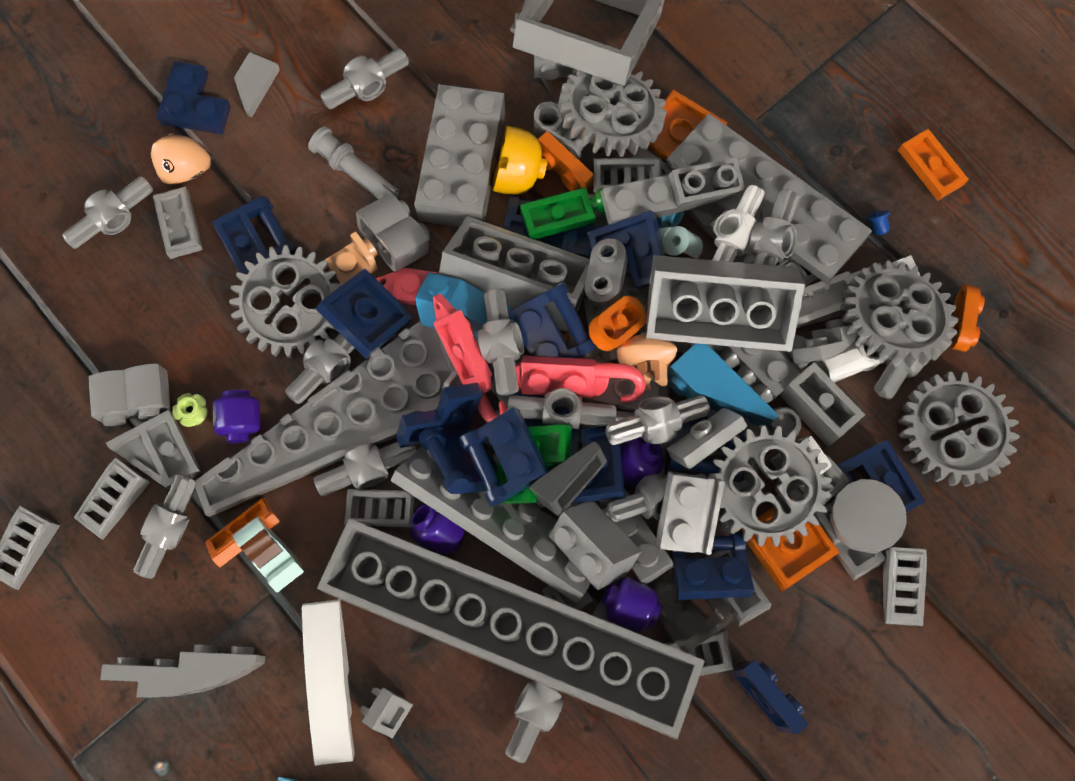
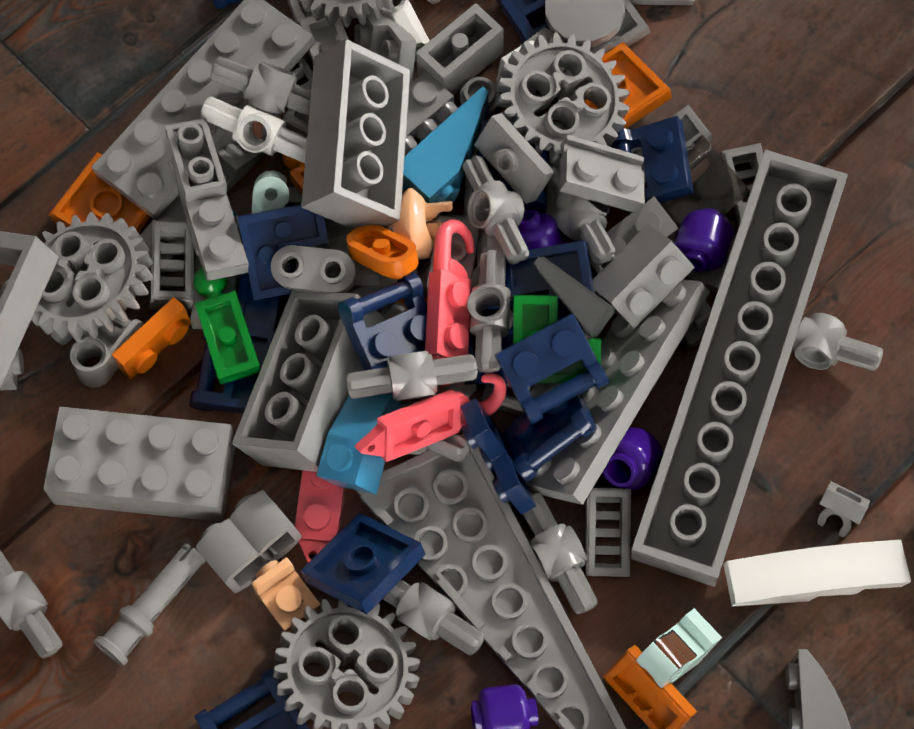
camera: 90 degrees left, 5 degrees down
(518, 162) = (153, 388): yellow cylinder -> none
(760, 684) = (789, 104): dark blue plate -> none

